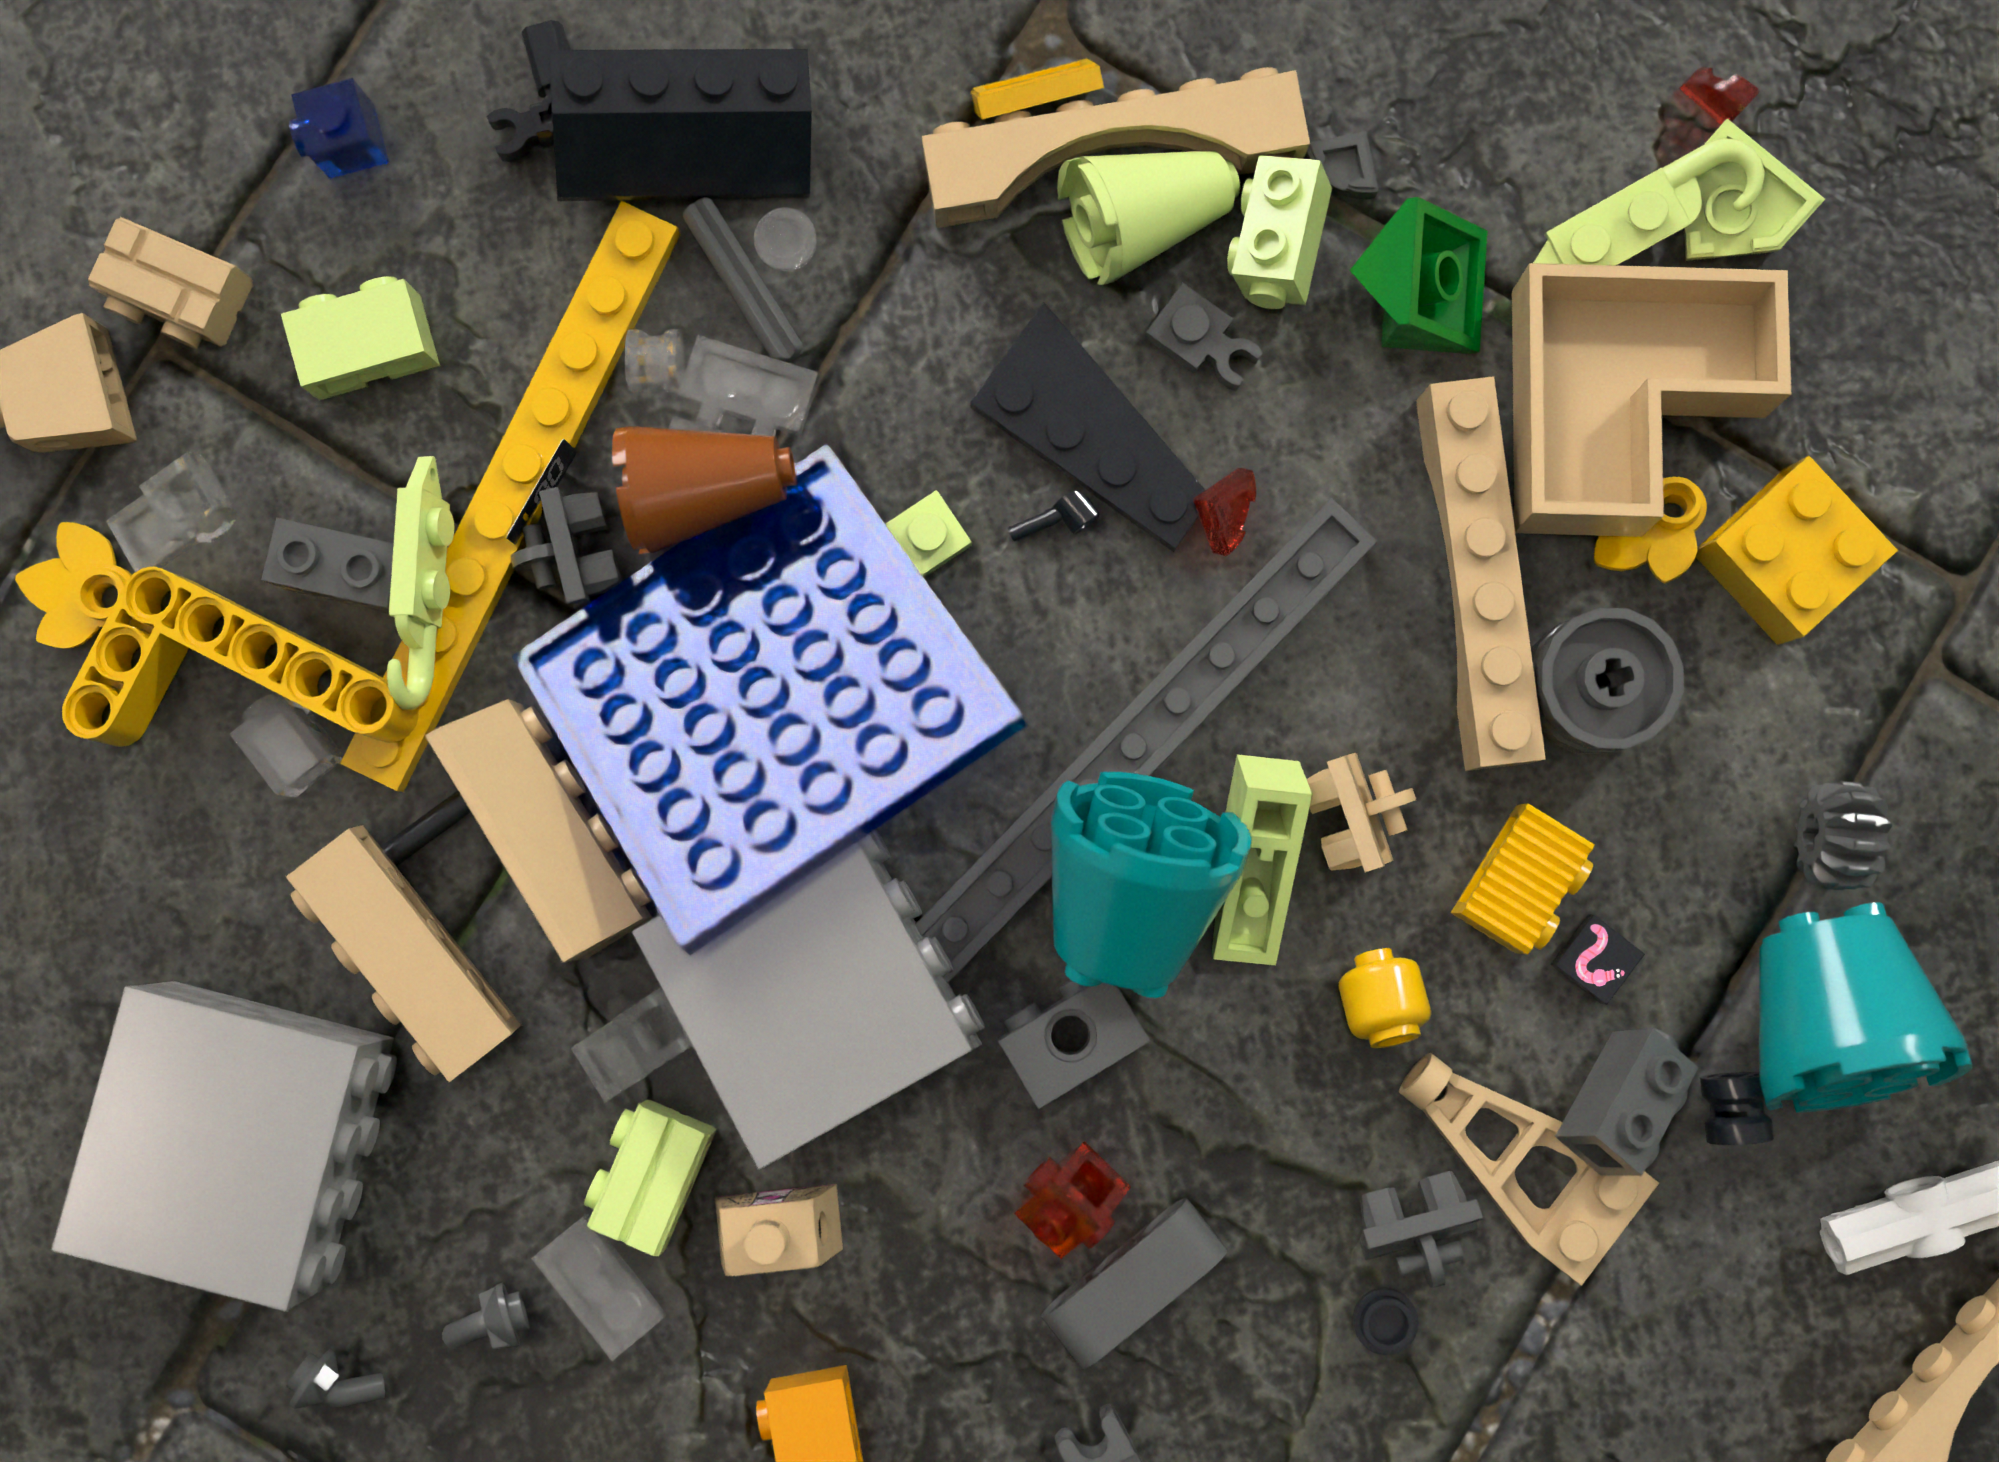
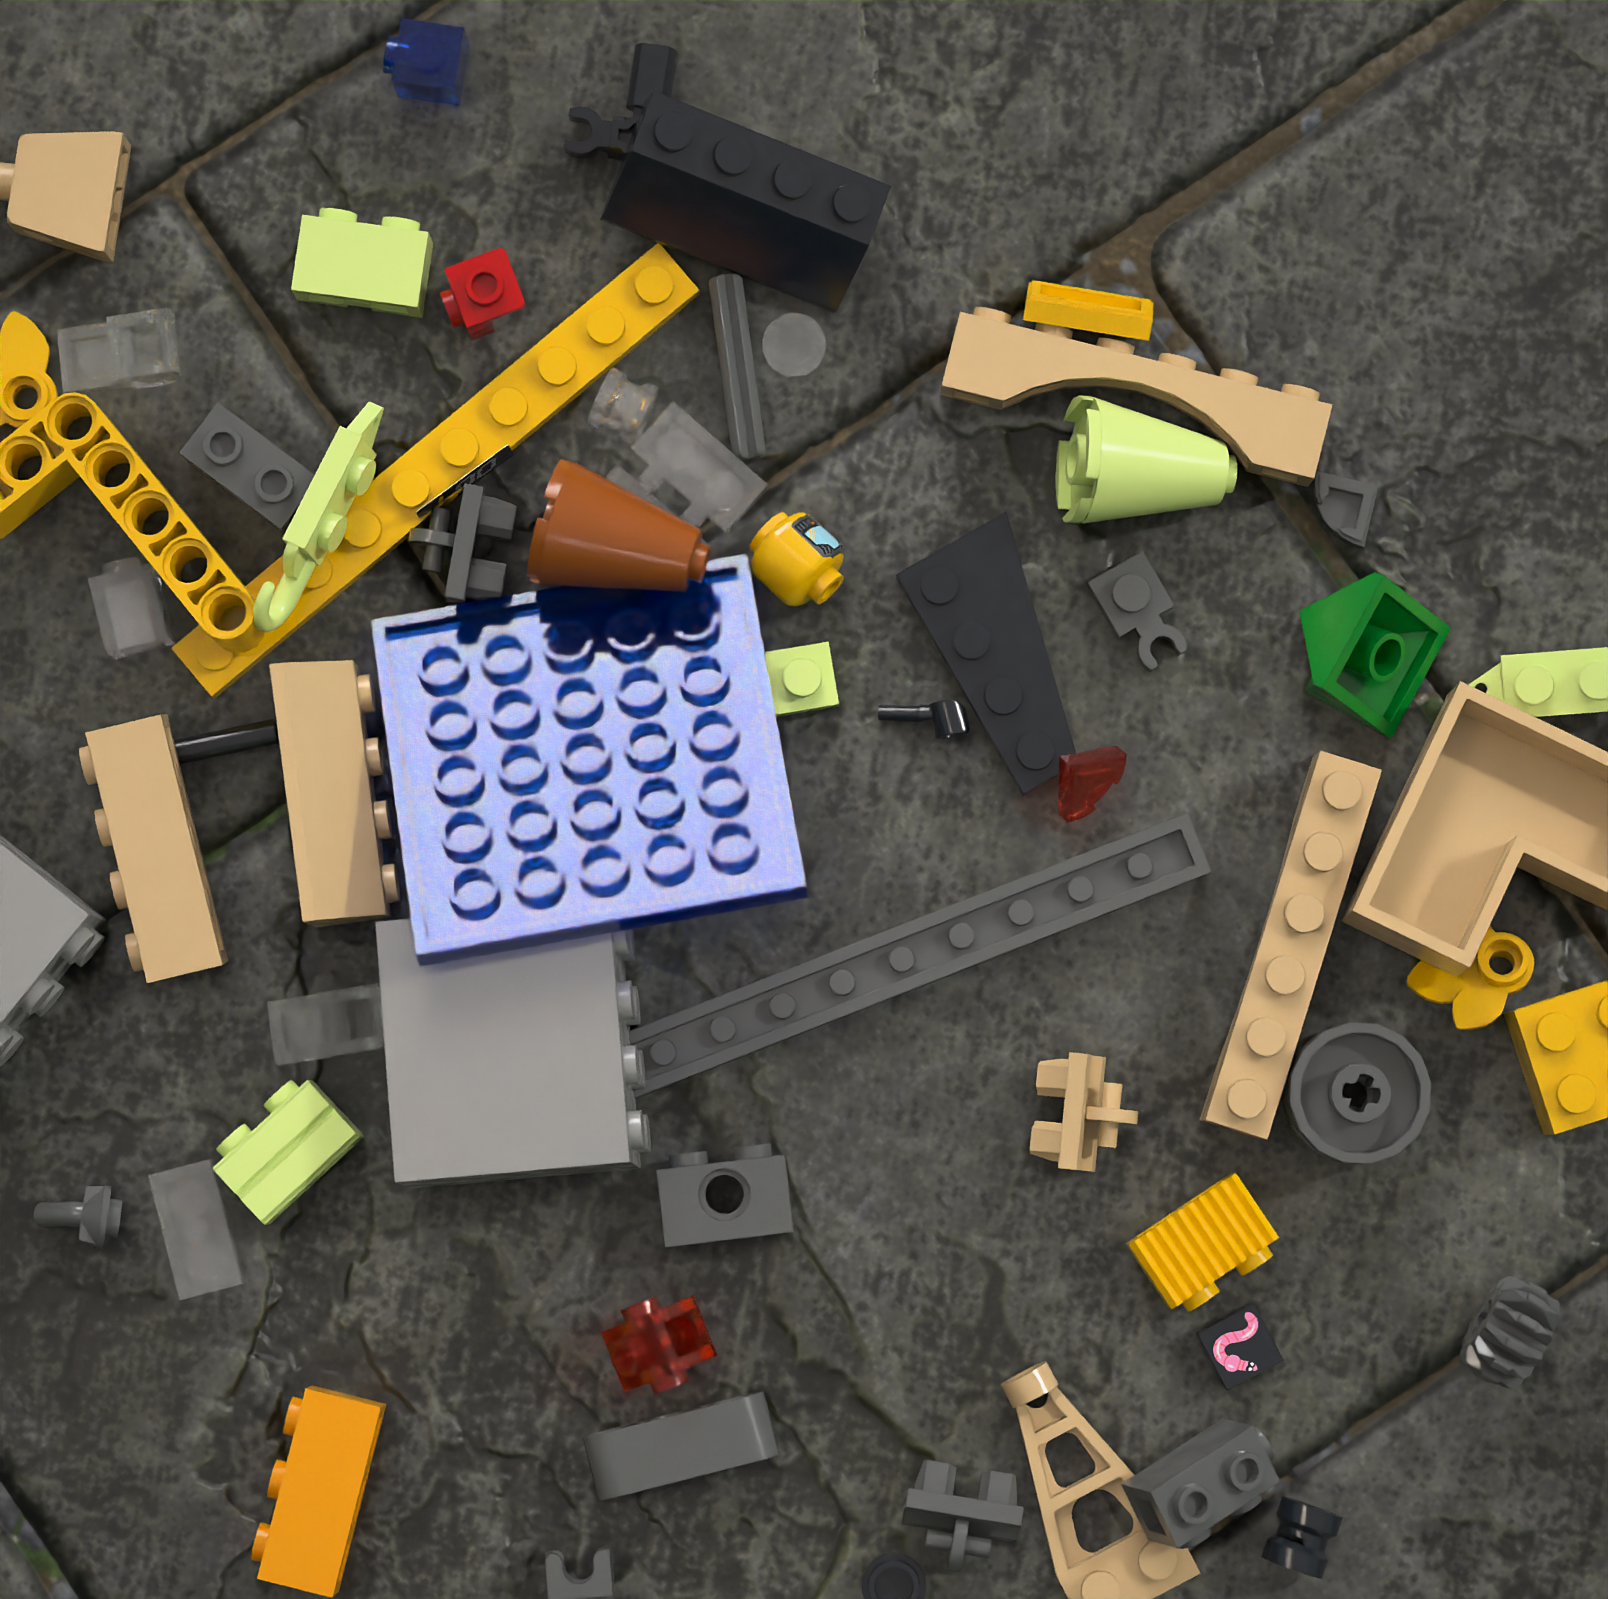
camera: 25 degrees right, 0 degrees up
(169, 282) = (210, 135): tan brick -> none
(477, 311) = (482, 292): none -> red bracket
(778, 1229) = (381, 1249): tan torso -> none
(874, 427) = (797, 559): none -> yellow head
(1137, 878) = (848, 1078): teal cone -> none
(1274, 805) = (969, 1113): yellowish green slope -> none
(1280, 231) = (1251, 546): yellowish green brick -> none
(1384, 998) = (1025, 1292): yellow head -> none
(1849, 1014) = (1434, 1494): teal cone -> none

